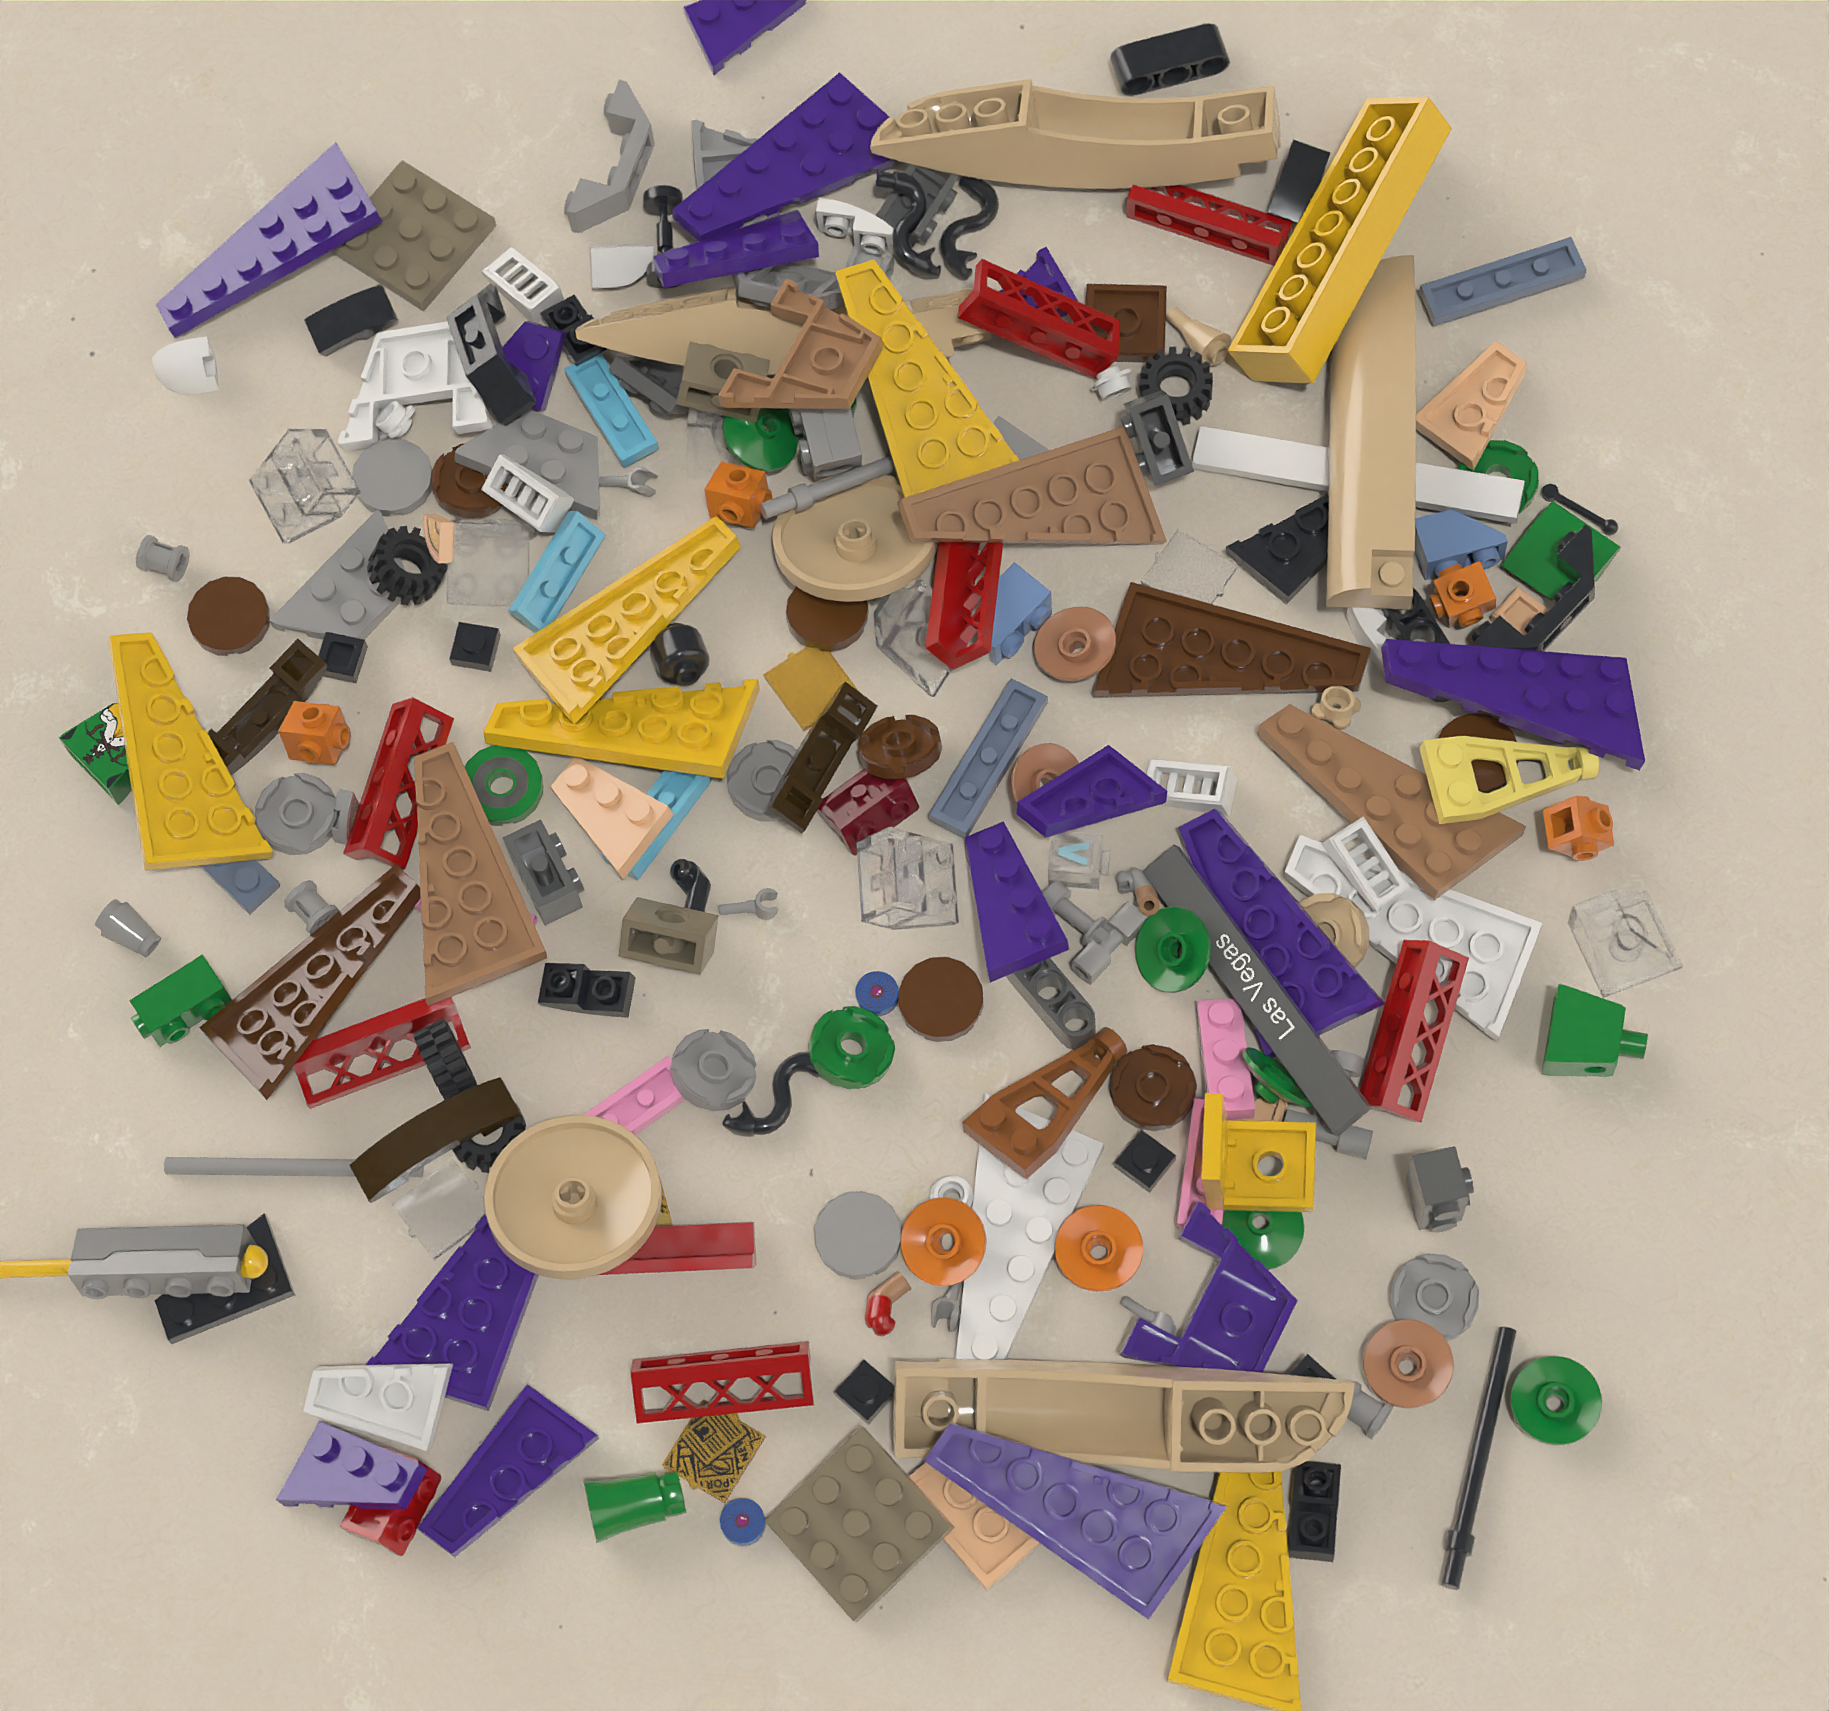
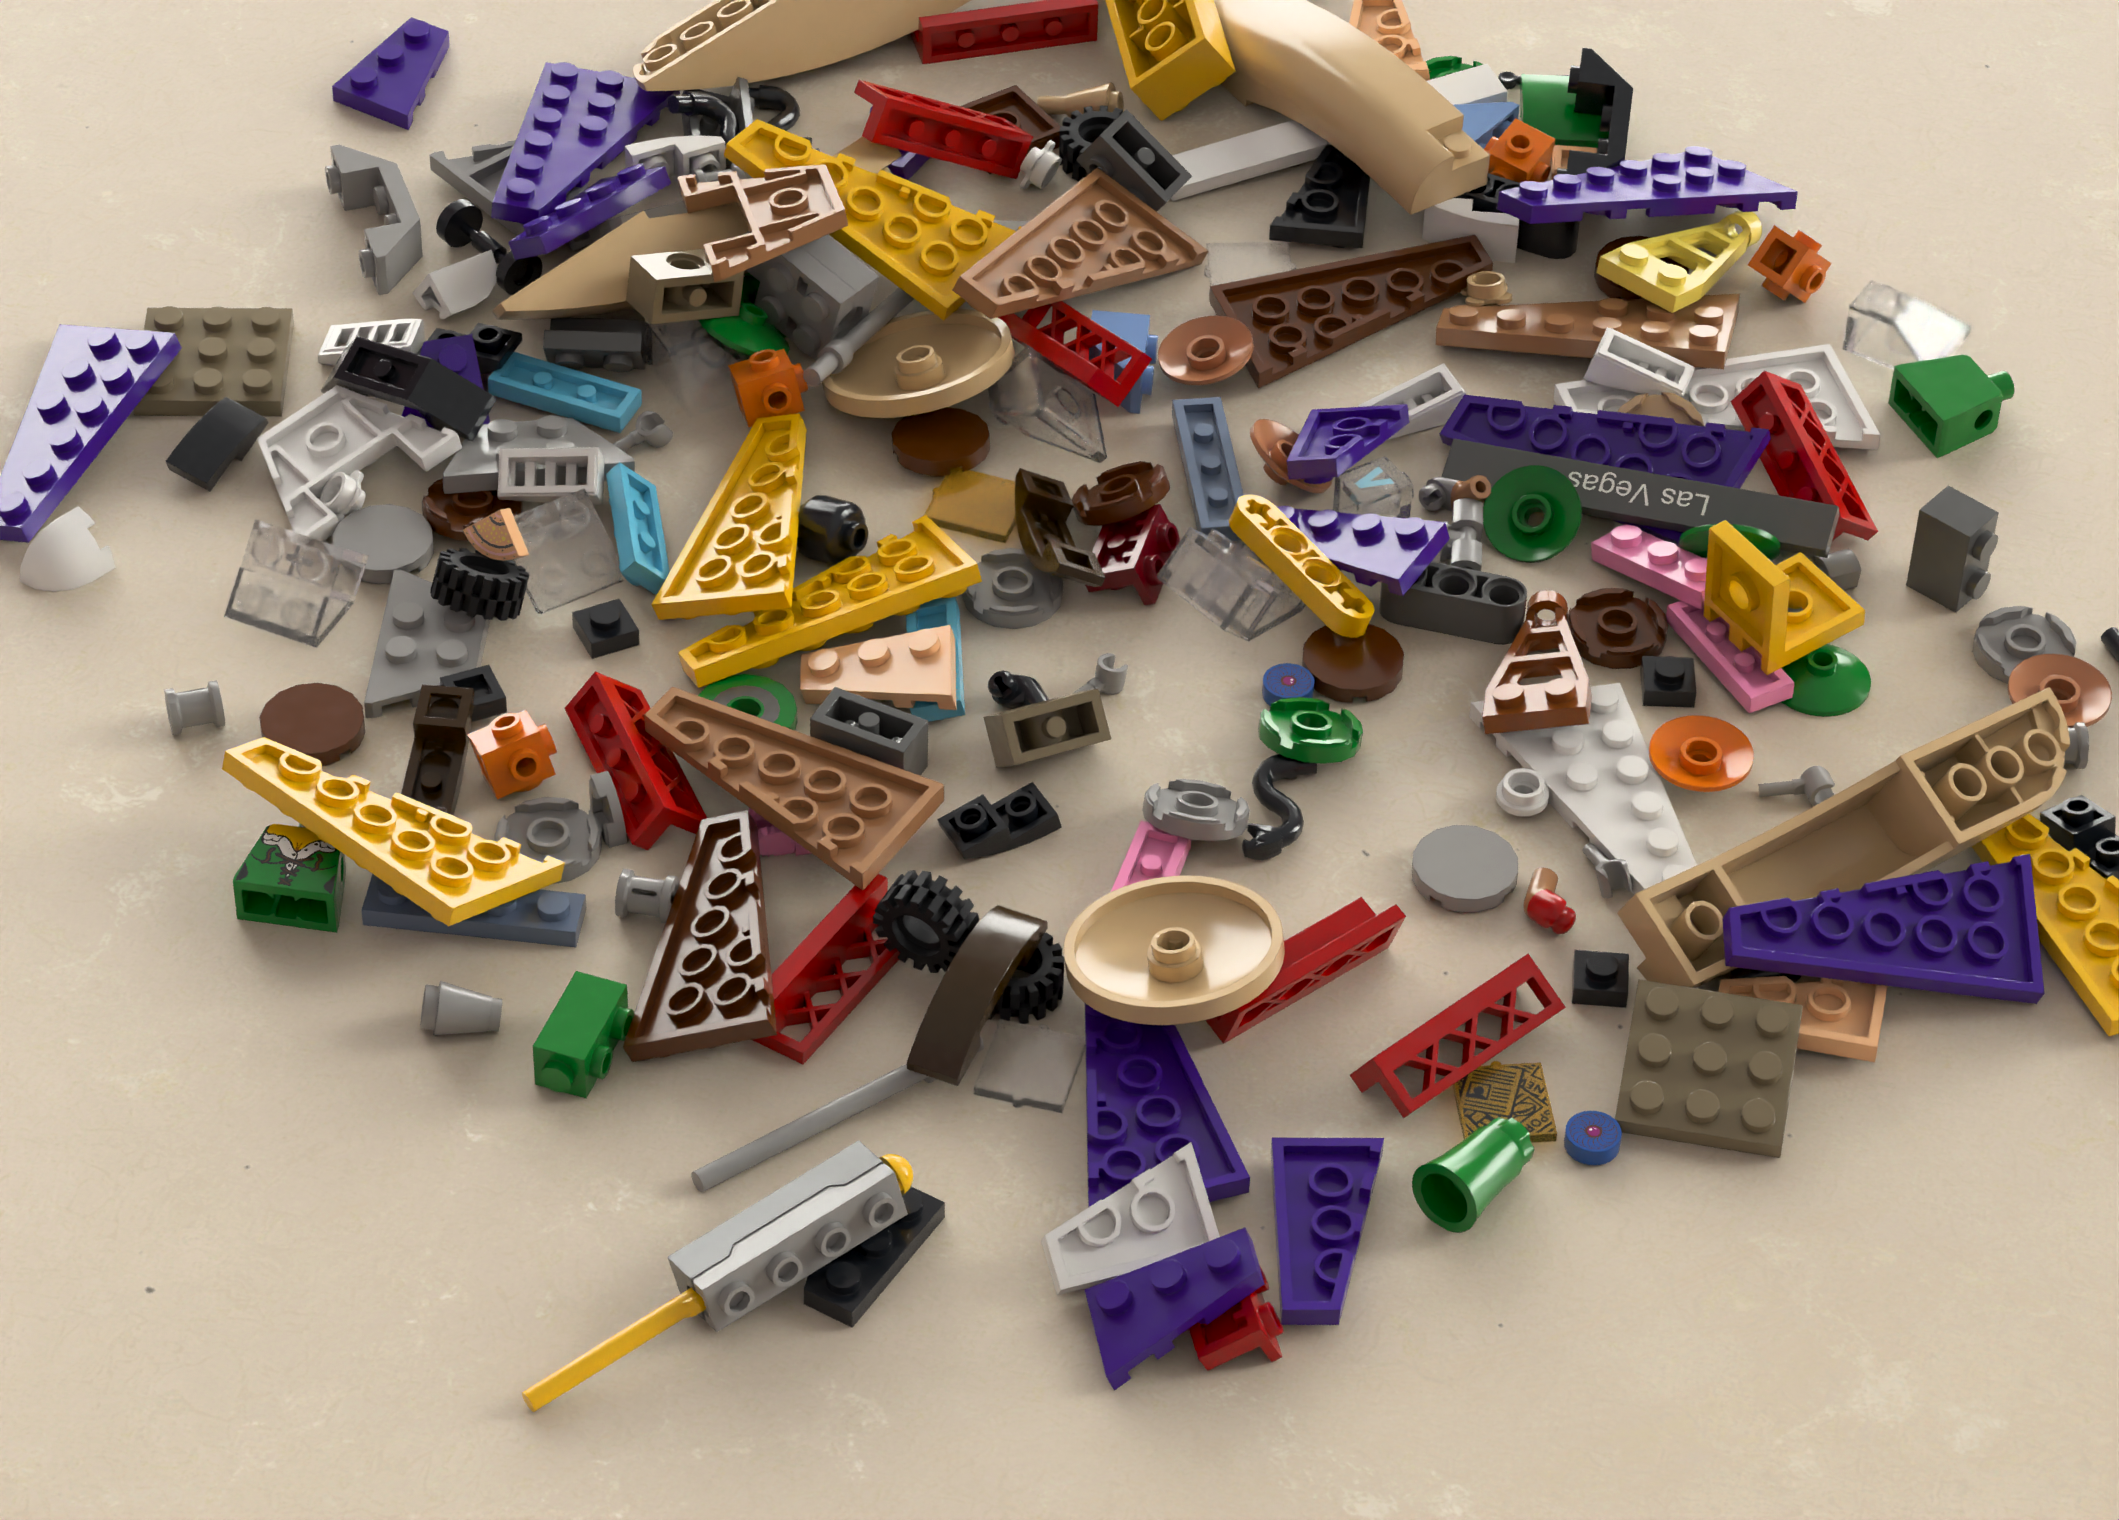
camera: 45 degrees left, 25 degrees down
(923, 1241) = (1560, 800): orange dish -> none
(948, 901) = (1332, 600): none -> yellow beam
(1235, 1316) = (1862, 723): dark purple wing -> none

